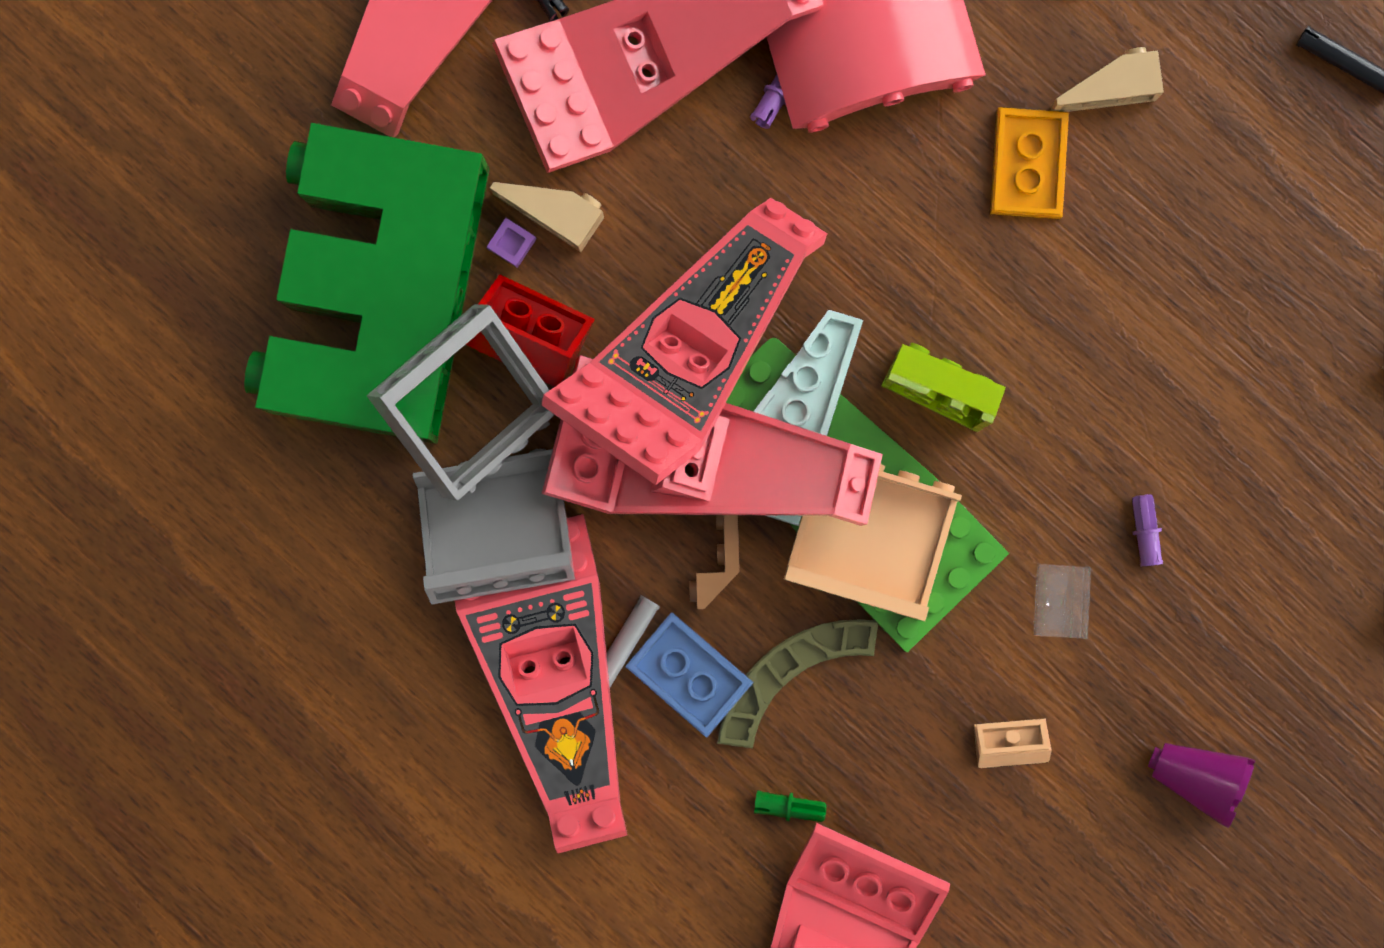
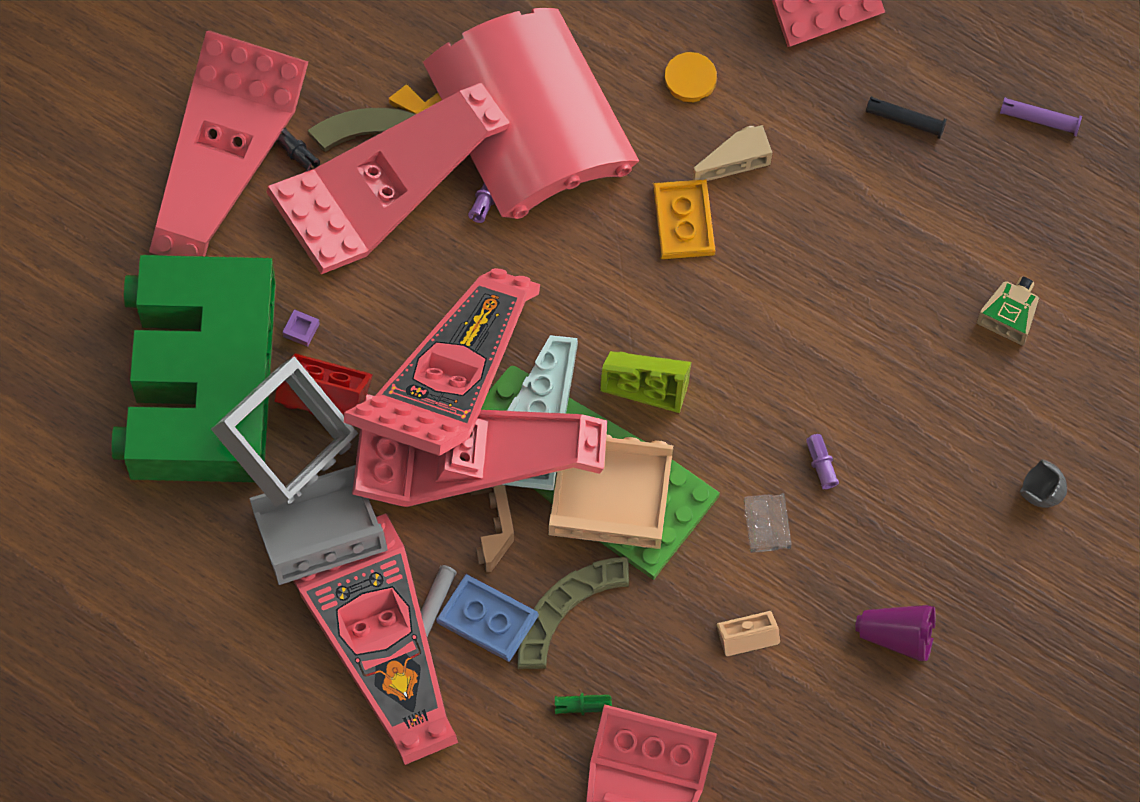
camera: 15 degrees left, 20 degrees down
(557, 211) = (331, 300): tan slope -> none

